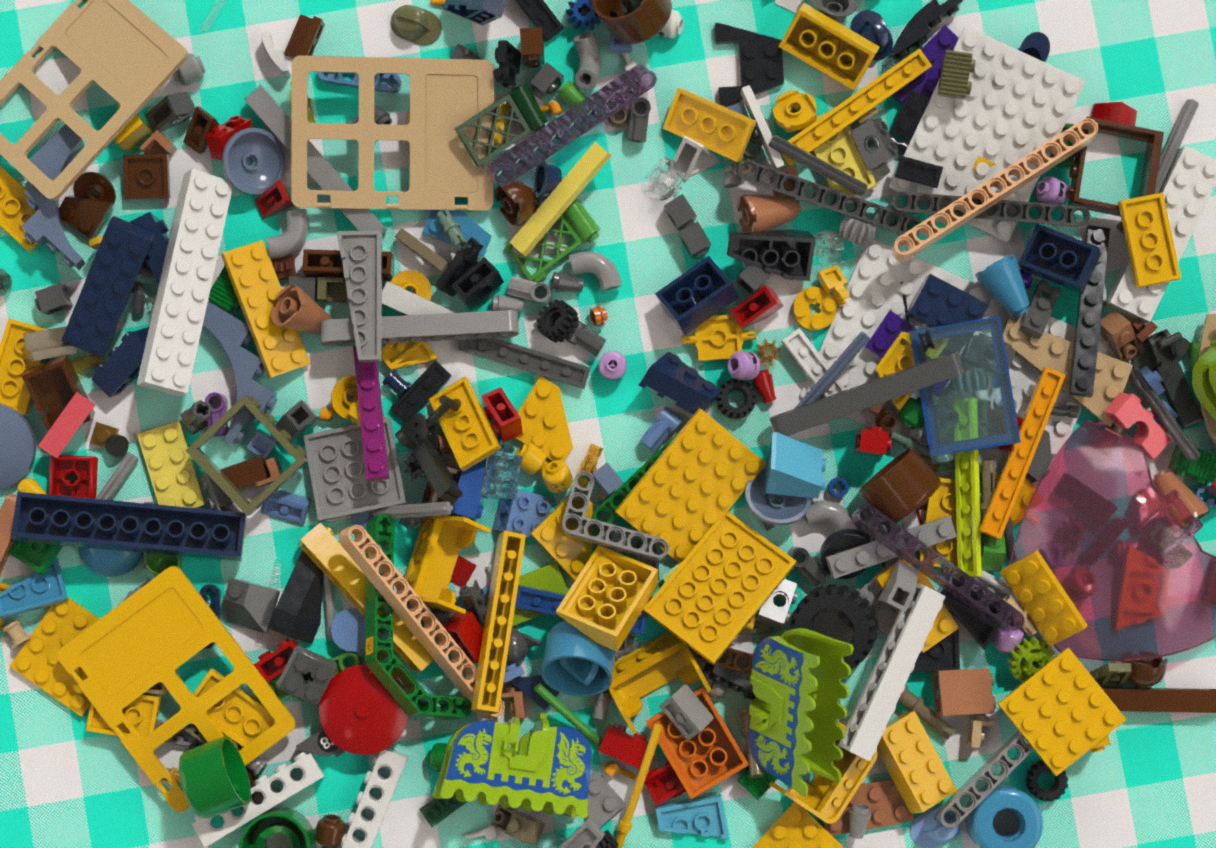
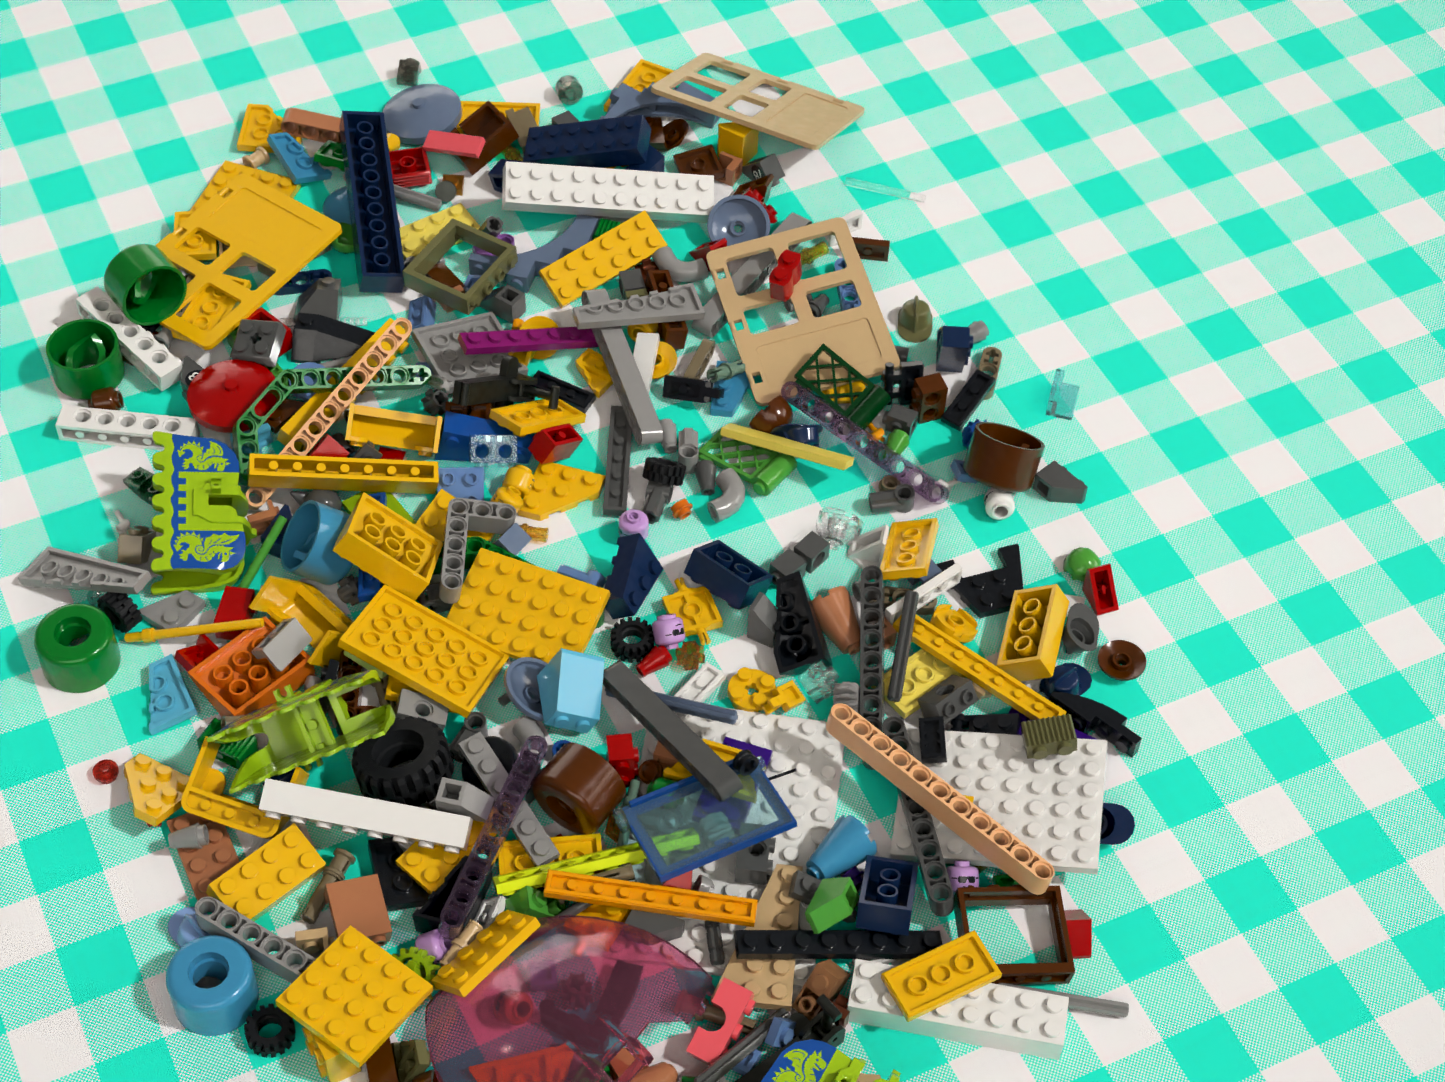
camera: 75 degrees right, 35 degrees down
(190, 70) = (806, 173): light grey head -> none
(298, 311) = (608, 274): nougat cone -> none
(362, 141) = (785, 275): none -> red brick
(396, 383) = (563, 369): dark blue bush -> none
(477, 283) = (680, 404): black brick -> none
(513, 671) = (292, 498): medium blue plate -> none
(588, 60) = (935, 450): light grey cylinder -> none
(611, 768) = (208, 614): light orange hand -> none
(757, 307) = (736, 633): red slope -> none
(944, 304) = (799, 788): dark blue brick -> none
(1066, 307) = (831, 903): none -> bright green slope

